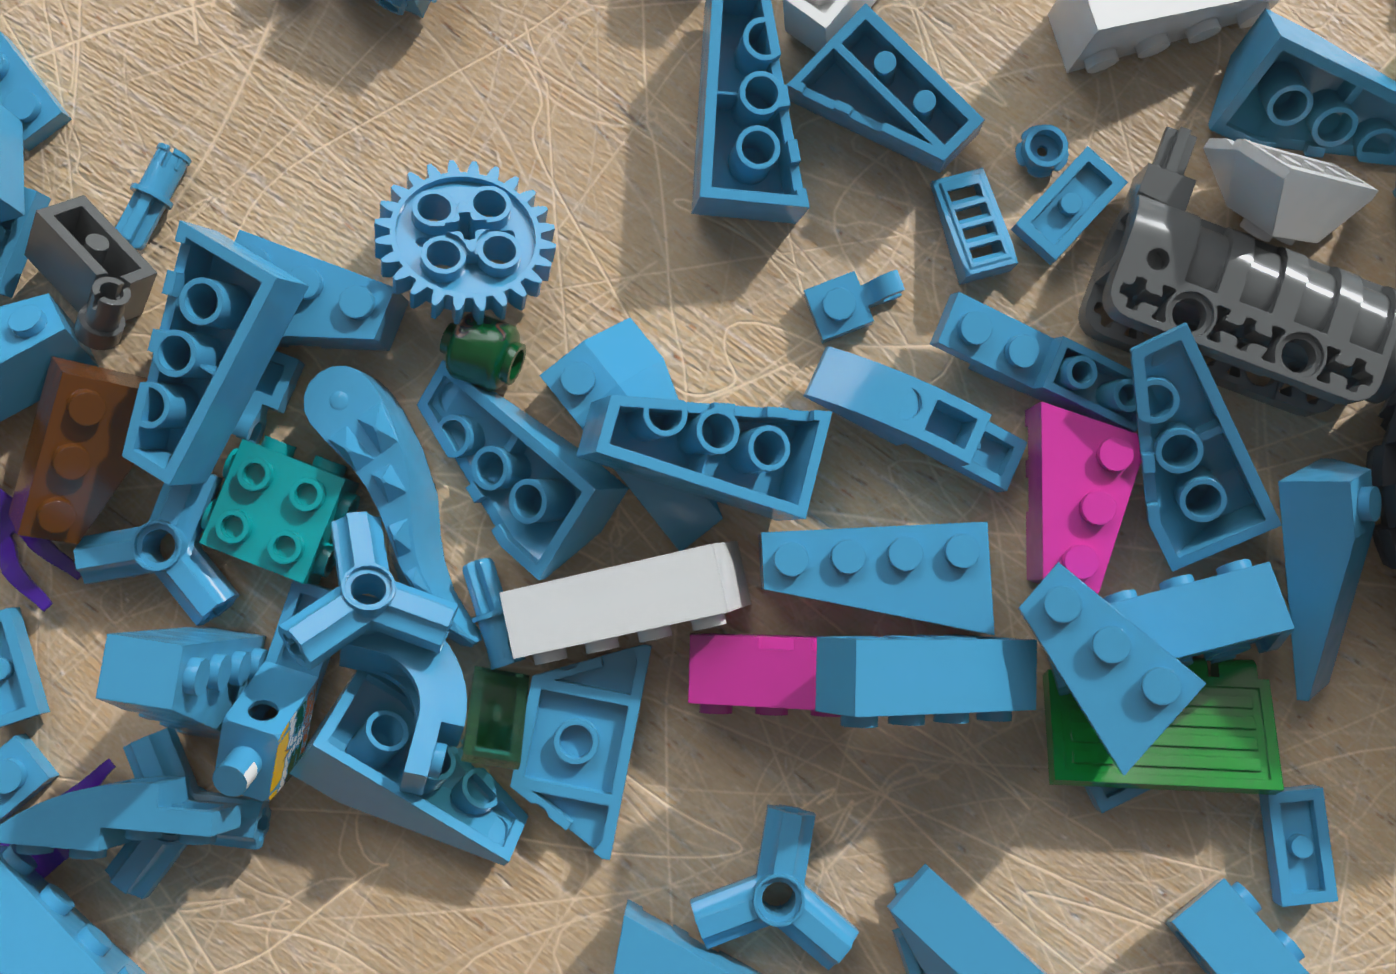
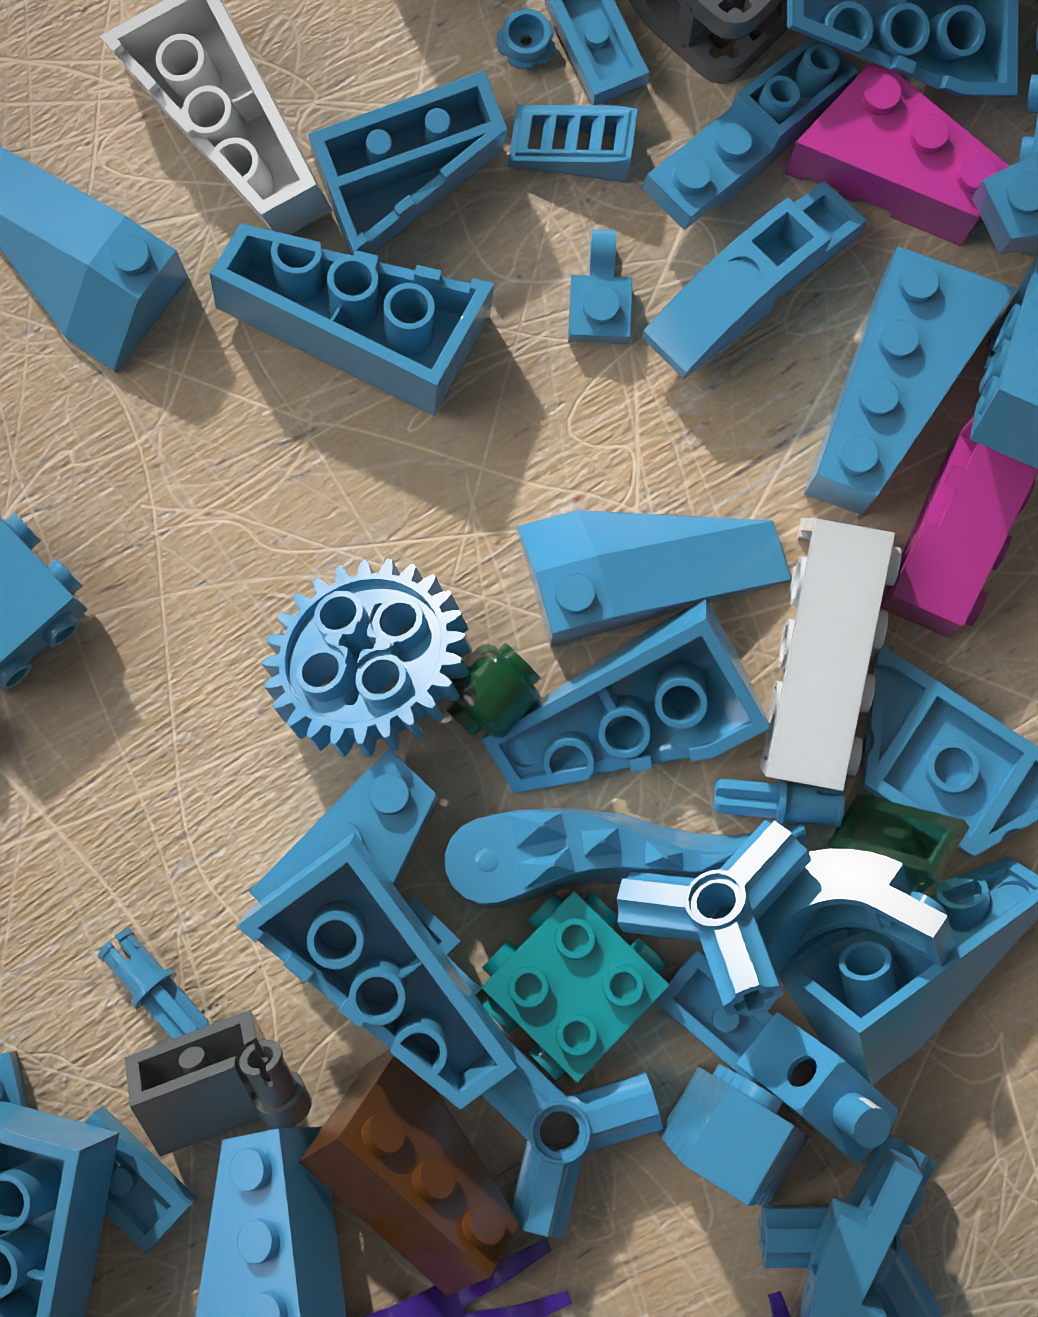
camera: 70 degrees left, 5 degrees down
(715, 450) = (717, 478): dark azure wedge -> none

